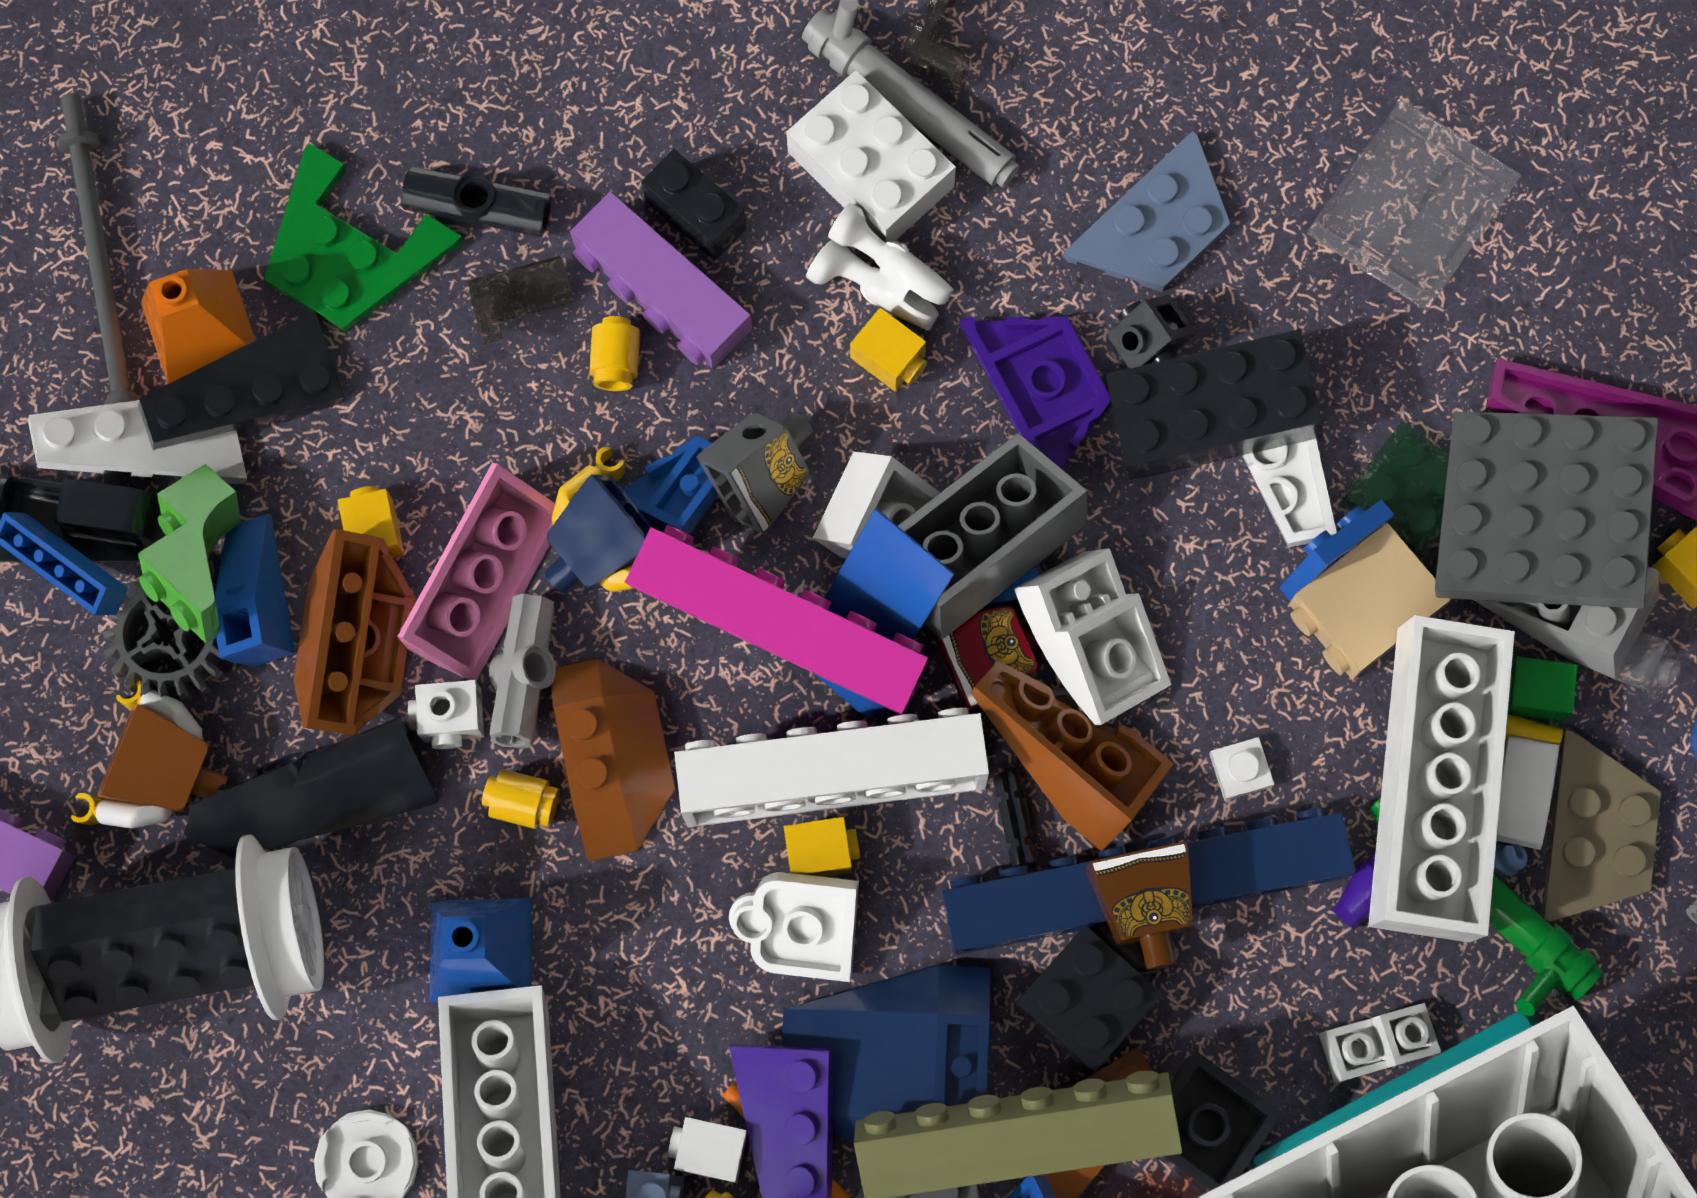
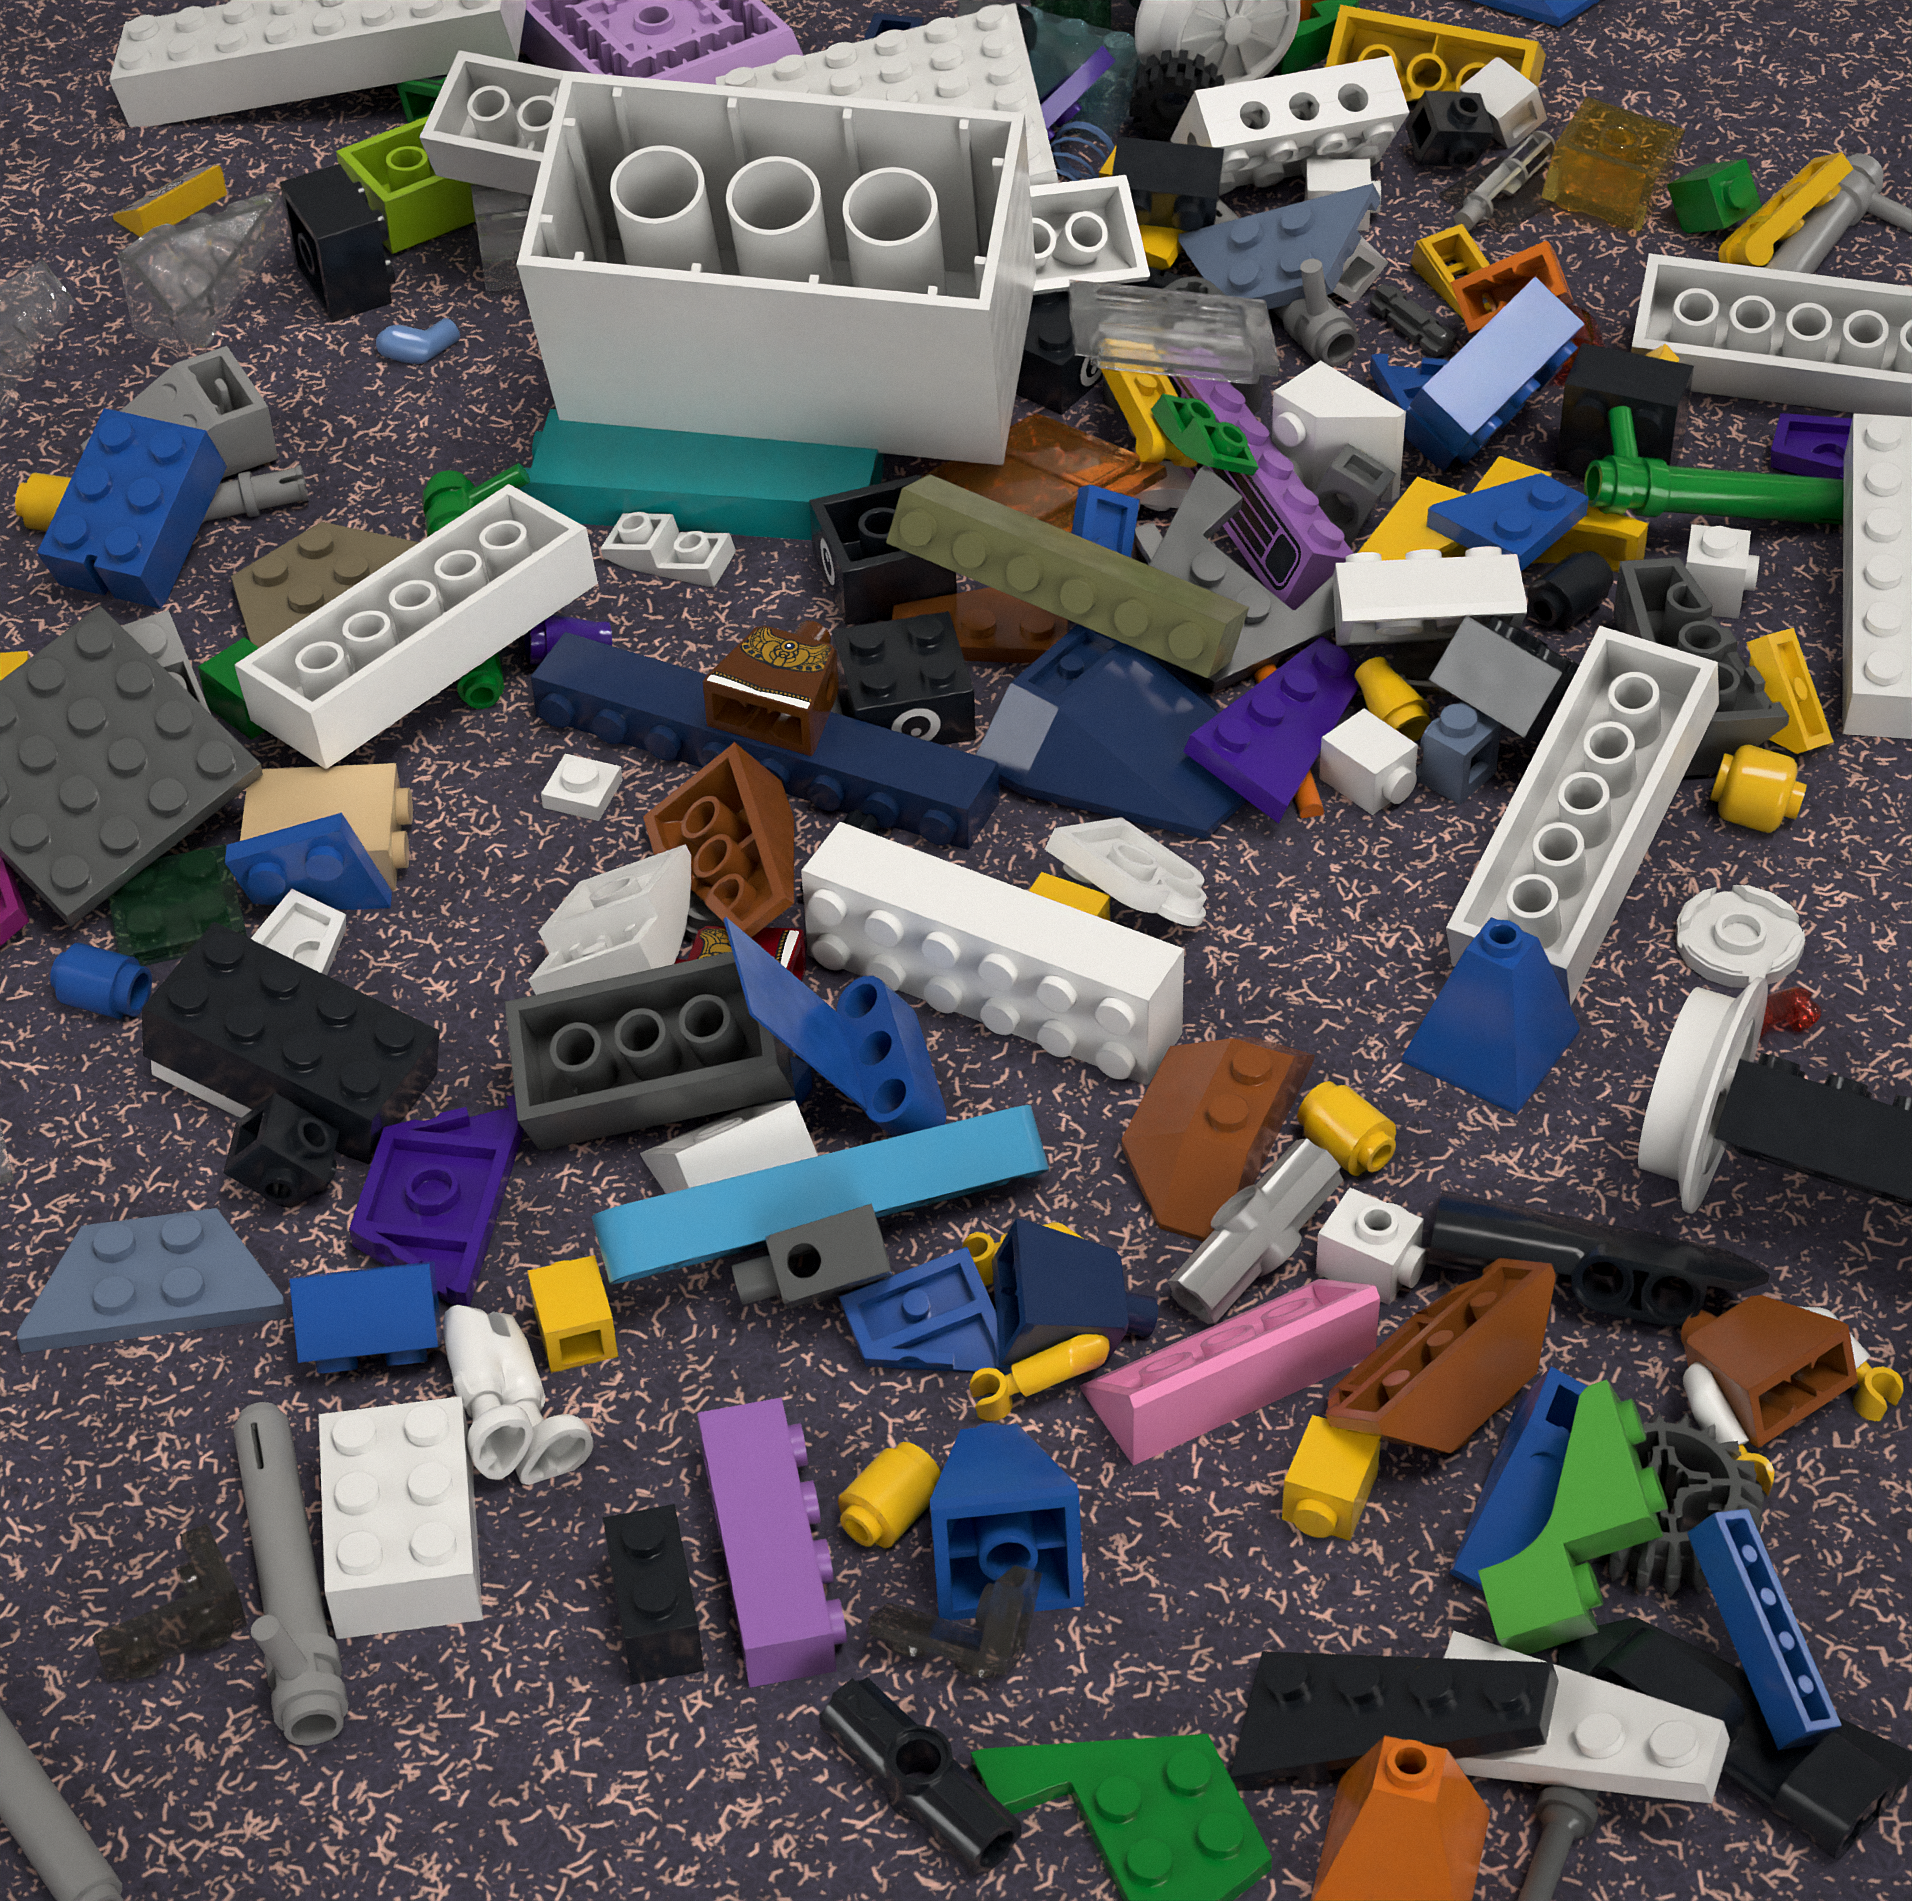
camera: 145 degrees left, 30 degrees down
(307, 1098) = (1794, 1006): none -> clear red arm
(539, 374) = (1003, 1508): none -> blue slope
(777, 620) = (942, 1063): dark pink brick -> none
(808, 489) = (888, 1173): none -> dark azure beam
(1001, 263) = (366, 1314): none -> blue brick
(1392, 391) = (100, 981): none -> blue brick

